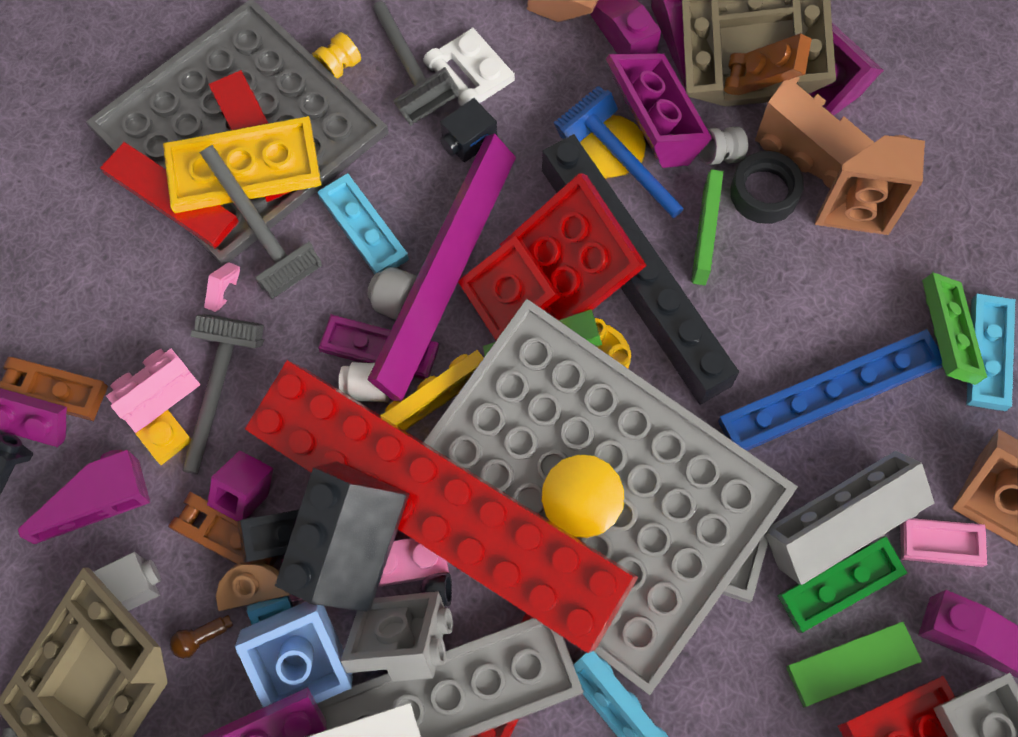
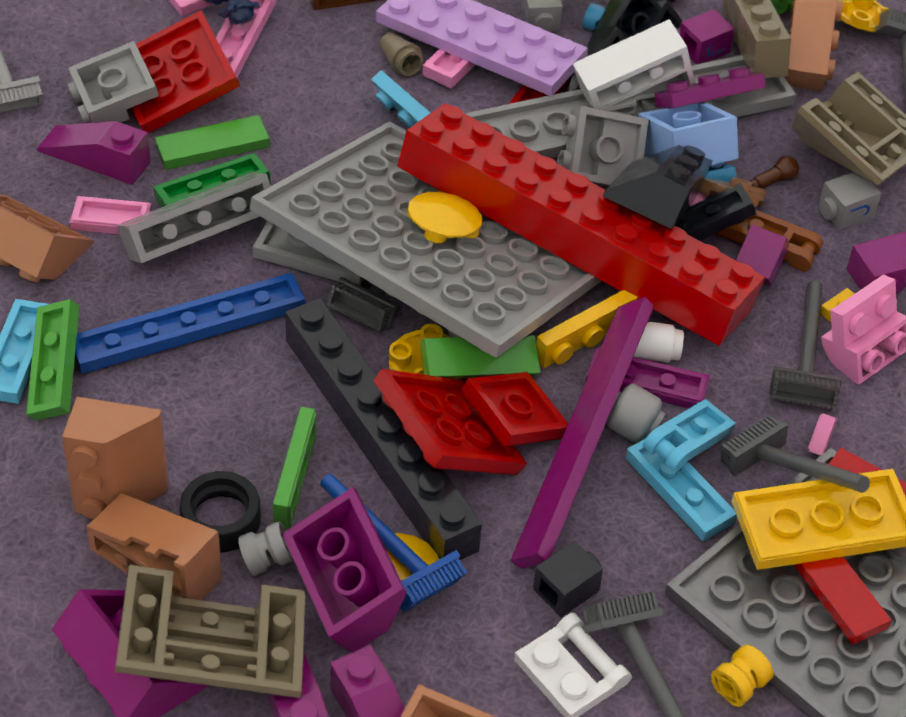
camera: 175 degrees right, 20 degrees down
(348, 261) = (689, 434): none -> medium azure plate
(768, 65) = (210, 583): dark orange plate -> none

